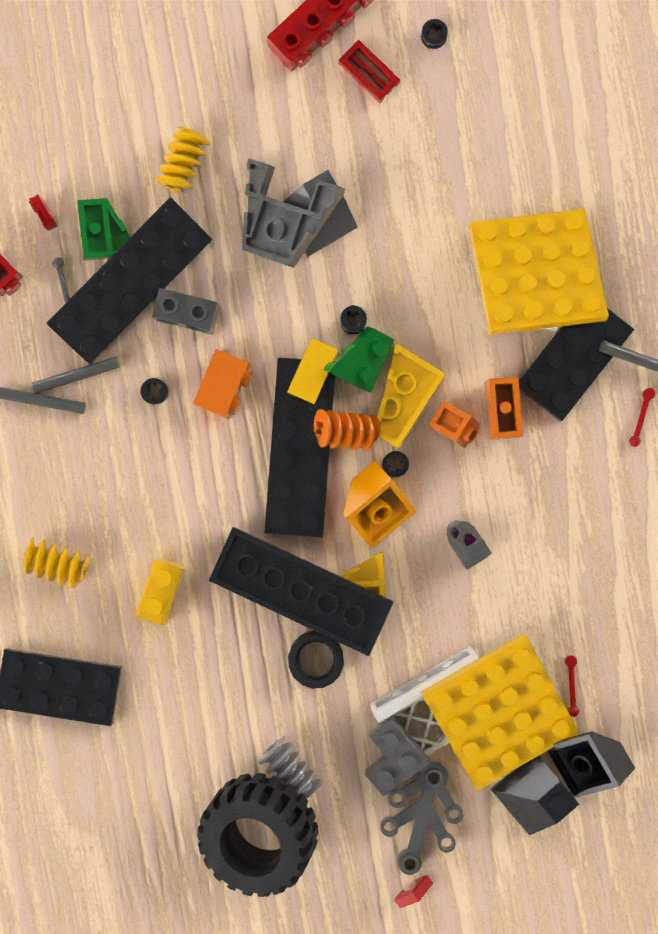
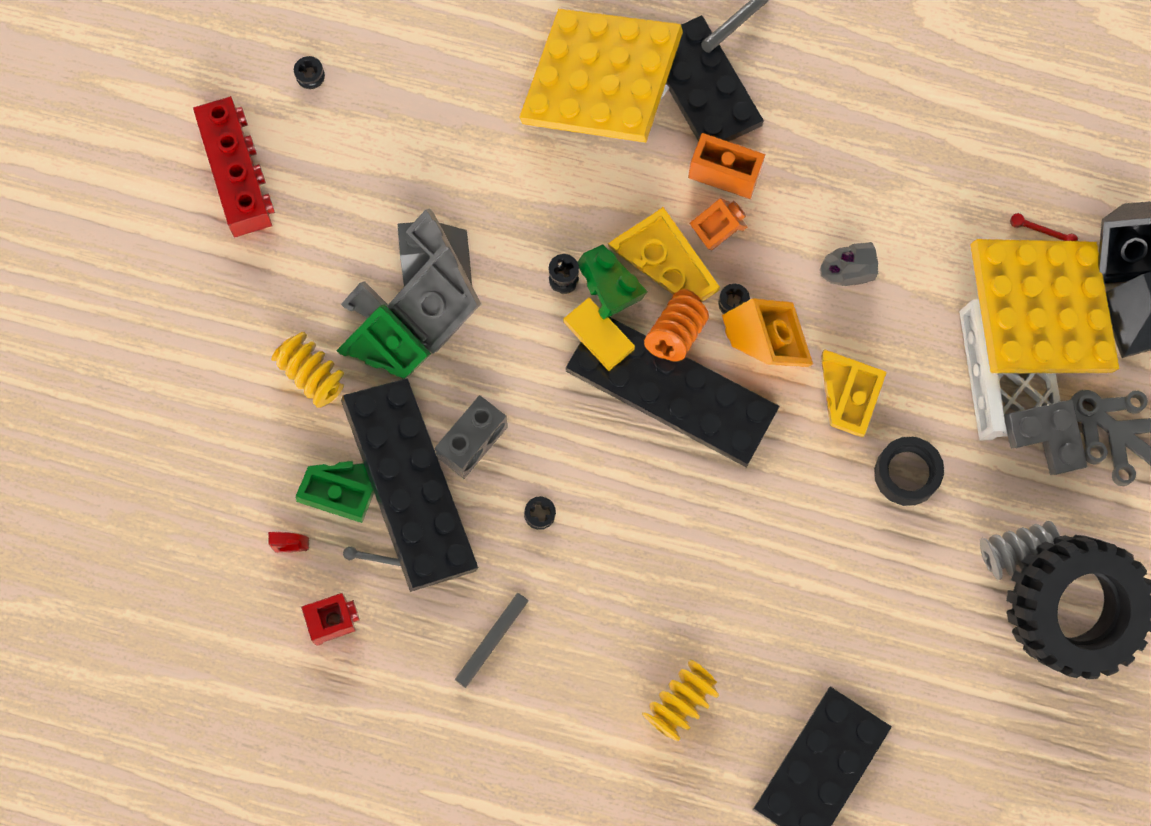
camera: 65 degrees left, 15 degrees down
(75, 375) = (481, 590): dark grey bar -> none
(160, 591) = (763, 600): yellow brick -> none
(222, 384) = (568, 434): orange brick -> none
(230, 210) = (386, 344): none -> green wing
(301, 591) = (828, 449): black plate -> none
(370, 88) = (319, 159): red tile -> none
(647, 394) = (773, 33): red hinge -> none

